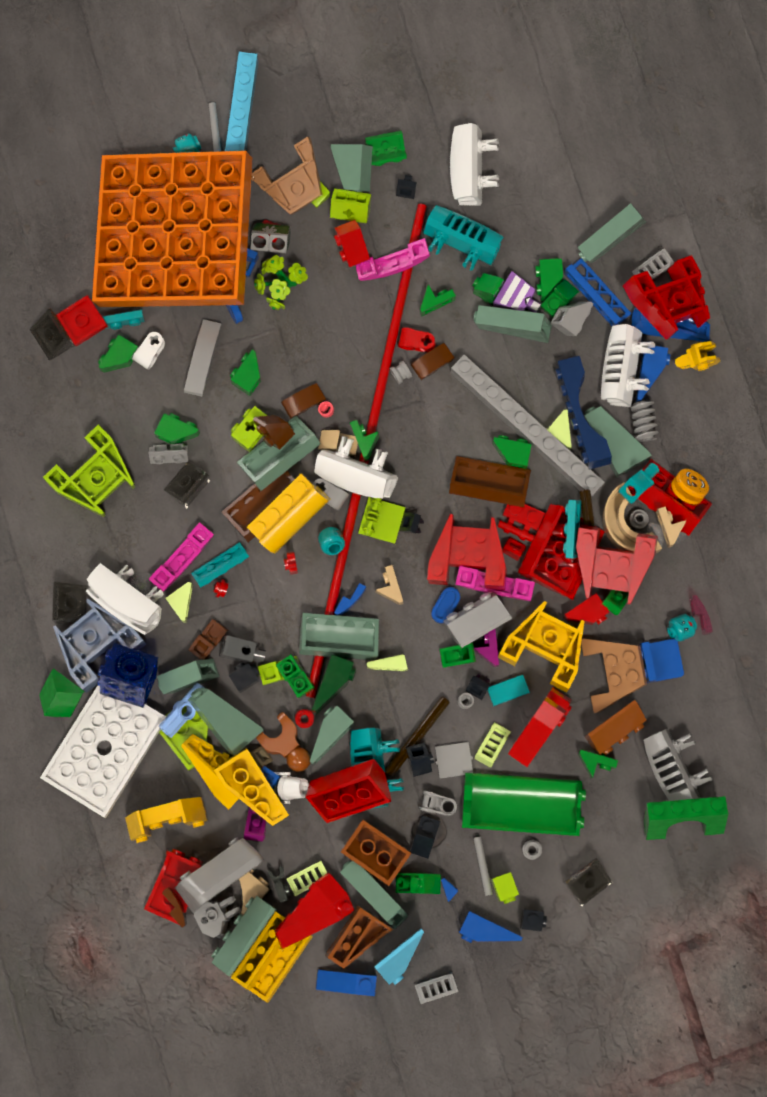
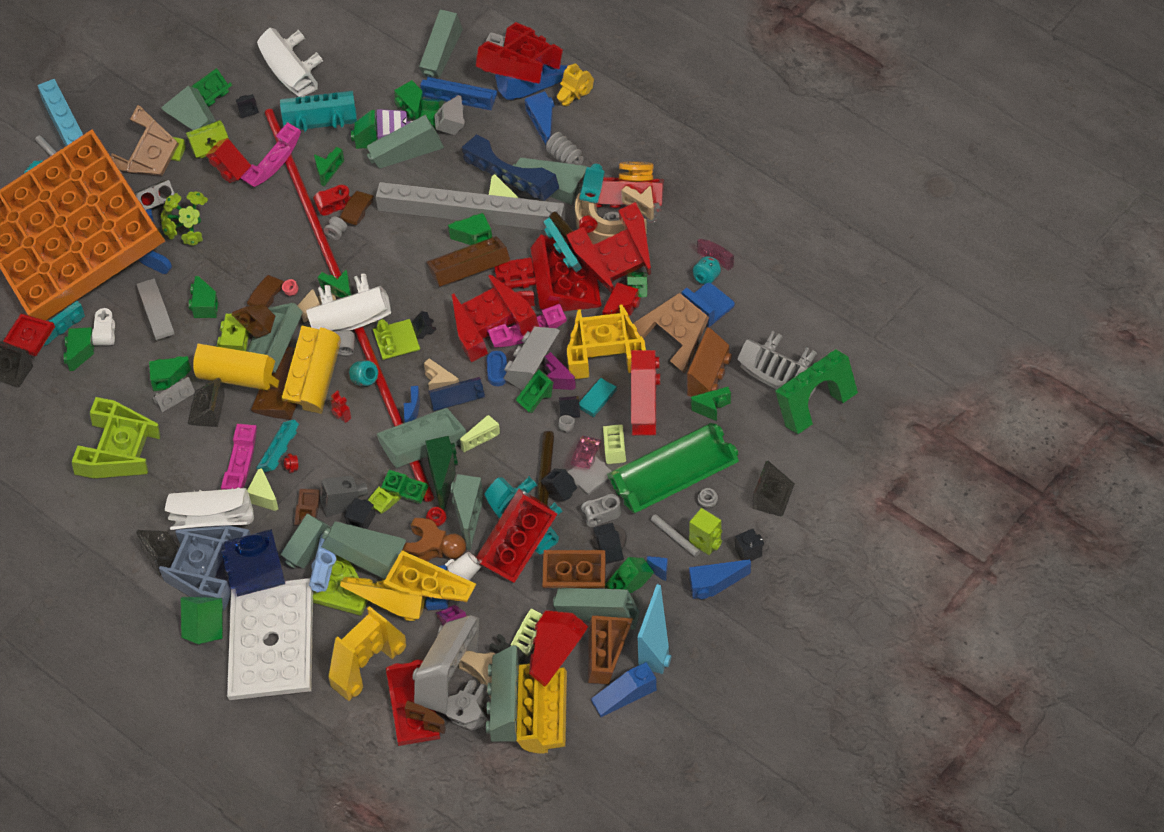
camera: 30 degrees left, 25 degrees down
(225, 472) = (234, 367): none -> yellow brick
(395, 611) = (456, 393): none -> dark blue hinge
(438, 995) = (715, 638): light grey slope -> none
(462, 741) = (585, 452): none -> clear pink slope
(606, 524) = (588, 223): none -> red plate
(621, 365) = (515, 124): white piece -> none

